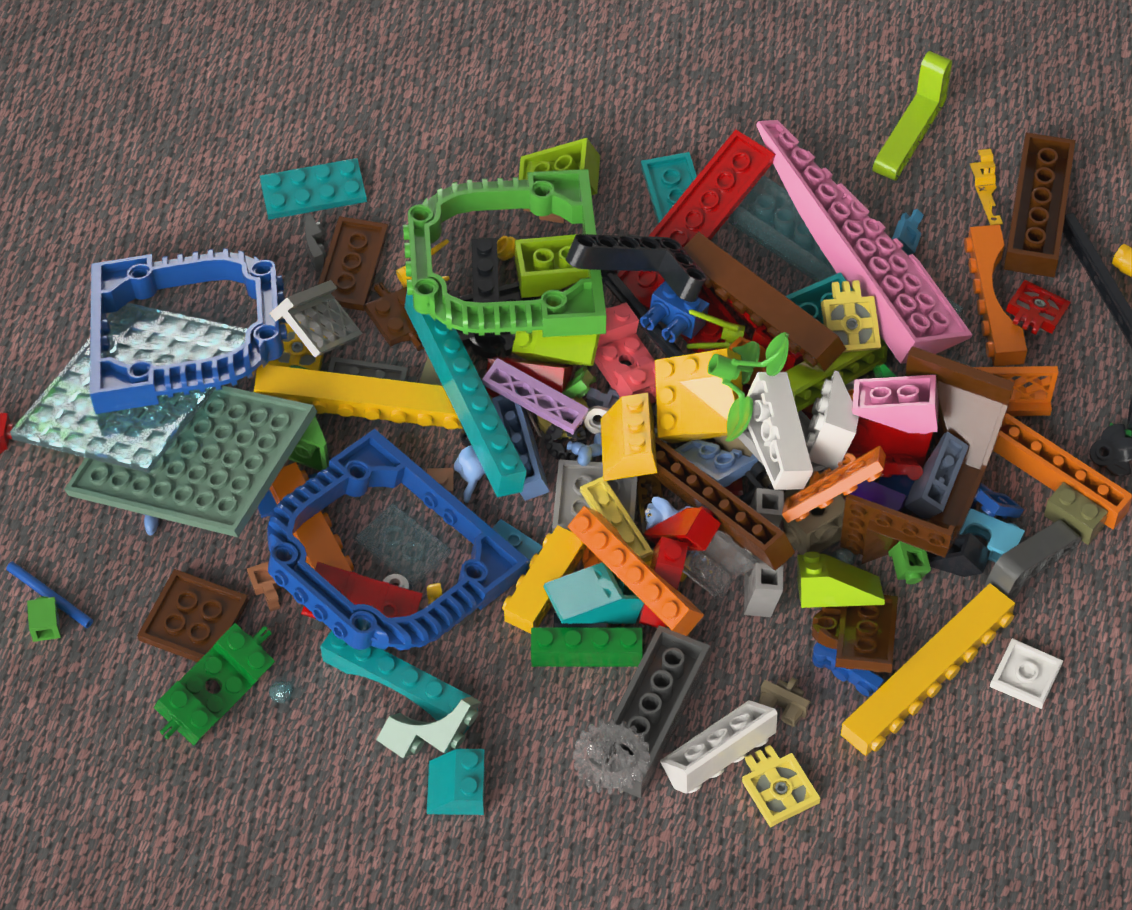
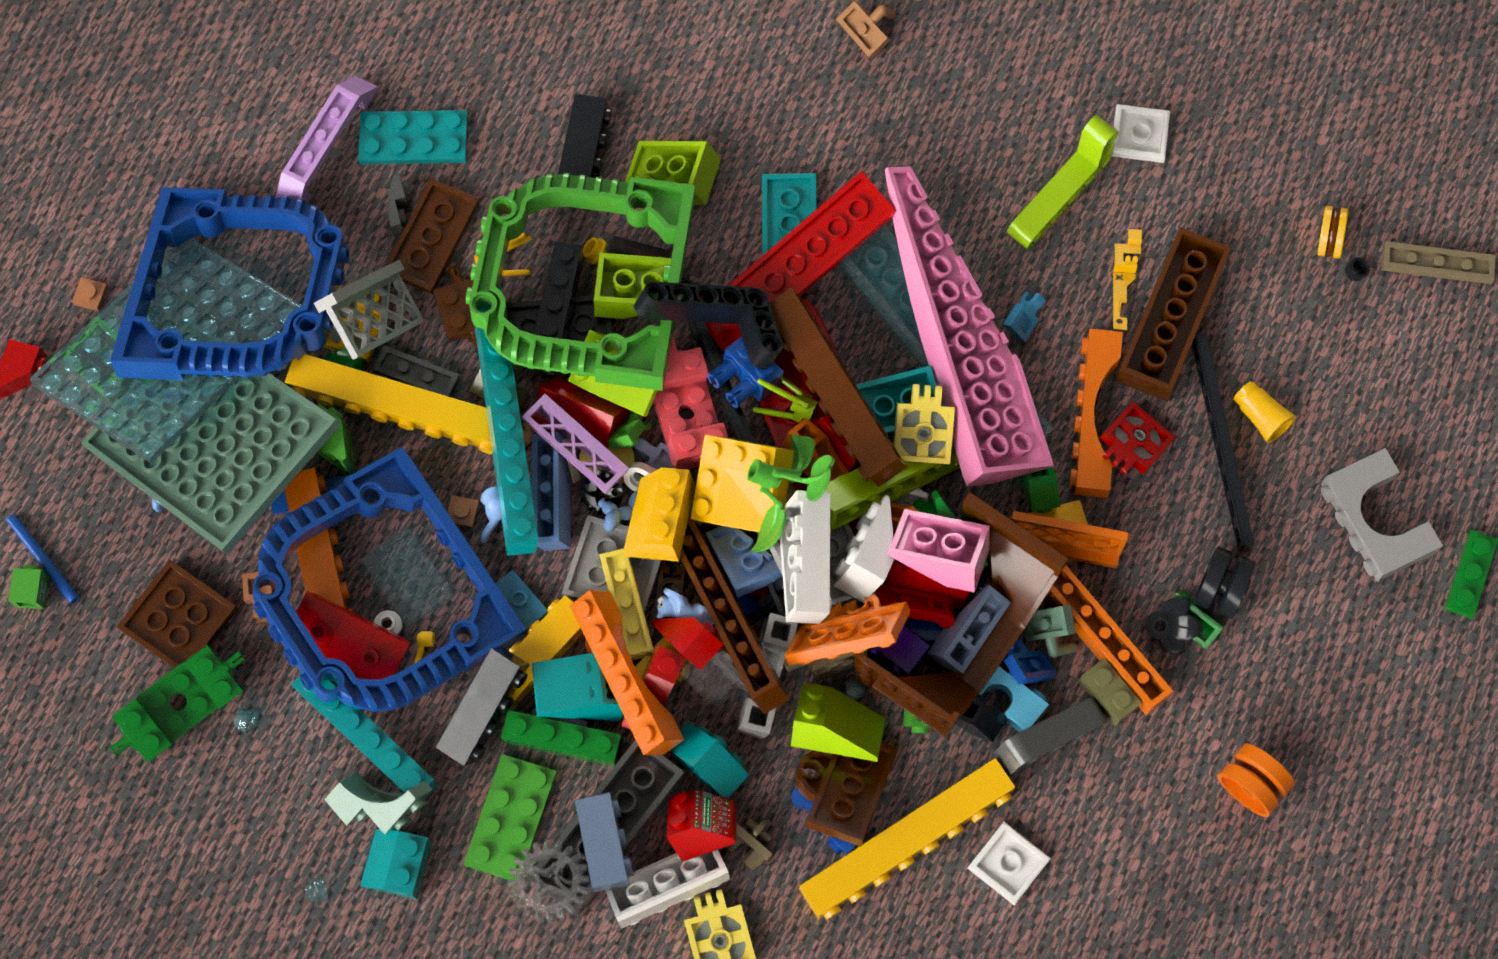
camera: 15 degrees right, 15 degrees up
(41, 367) = (90, 294): none -> nougat plate
(231, 198) = (323, 135): none -> lavender slope
(387, 822) = (316, 891): none -> clear light blue plate
(472, 157) = (585, 136): none -> black brick
(507, 629) = (483, 706): none -> brick
(553, 726) = (510, 816): none -> bright green plate
(653, 713) = (603, 842): none -> sand blue brick
(700, 33) = (864, 27): none -> medium nougat plate
(731, 636) = (709, 760): none -> teal brick
(737, 686) = (700, 823): none -> red slope
(965, 353) = (1041, 490): none -> green slope
(970, 75) = (1141, 133): none -> white tile
(1005, 466) = (1049, 625): none -> sand green plate

